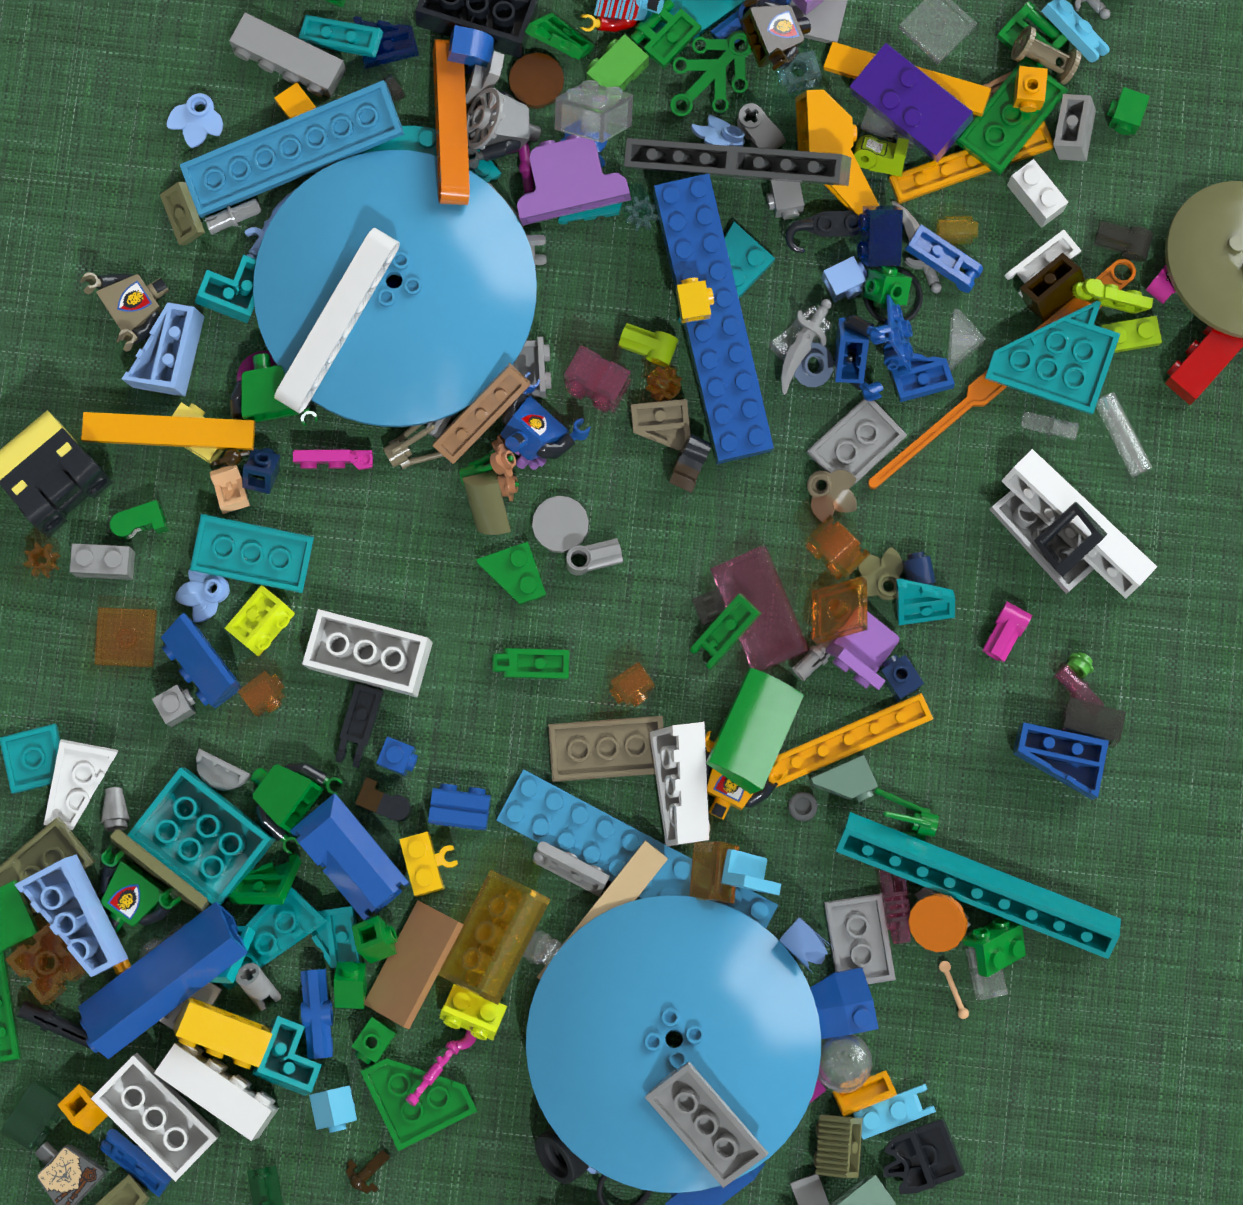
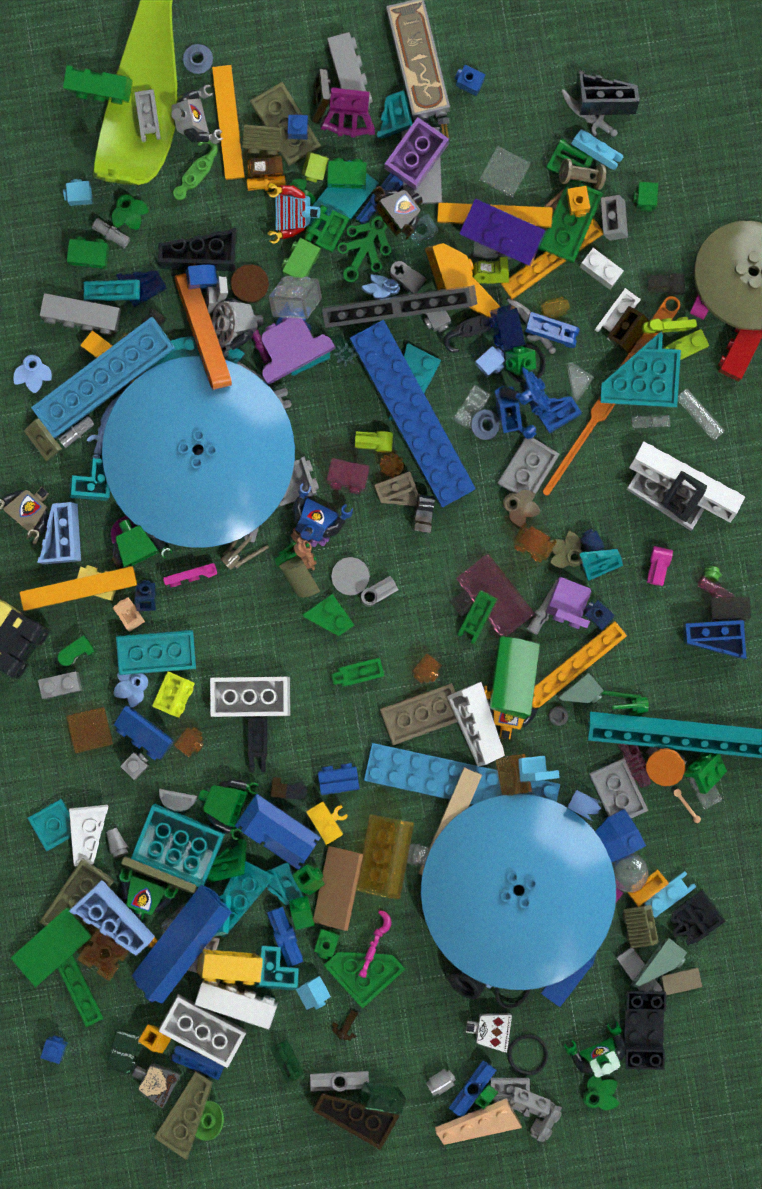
camera: 15 degrees left, 5 degrees up
(41, 567) = (17, 690): clear orange gear -> none
(50, 1021) = (119, 990): black pin -> none
(231, 457) = (124, 594): dark brown piece -> none
(256, 985) = (242, 929): light grey hinge -> none
(337, 320) = (169, 487): white beam -> none
(397, 757) = (289, 758): blue brick -> none
(472, 1013) = (384, 908): neon yellow bracket -> none
(481, 413) = (279, 519): medium nougat plate -> none
(560, 36) = (258, 250): green wing -> none
(570, 868) = (421, 798): light grey hinge -> none
(694, 300) = (397, 407): yellow brick -> none
(706, 1124) = (554, 938): light grey slope -> none
(803, 342) = (475, 412): light grey piece -> none
(839, 610) = (547, 583): clear orange plate -> none

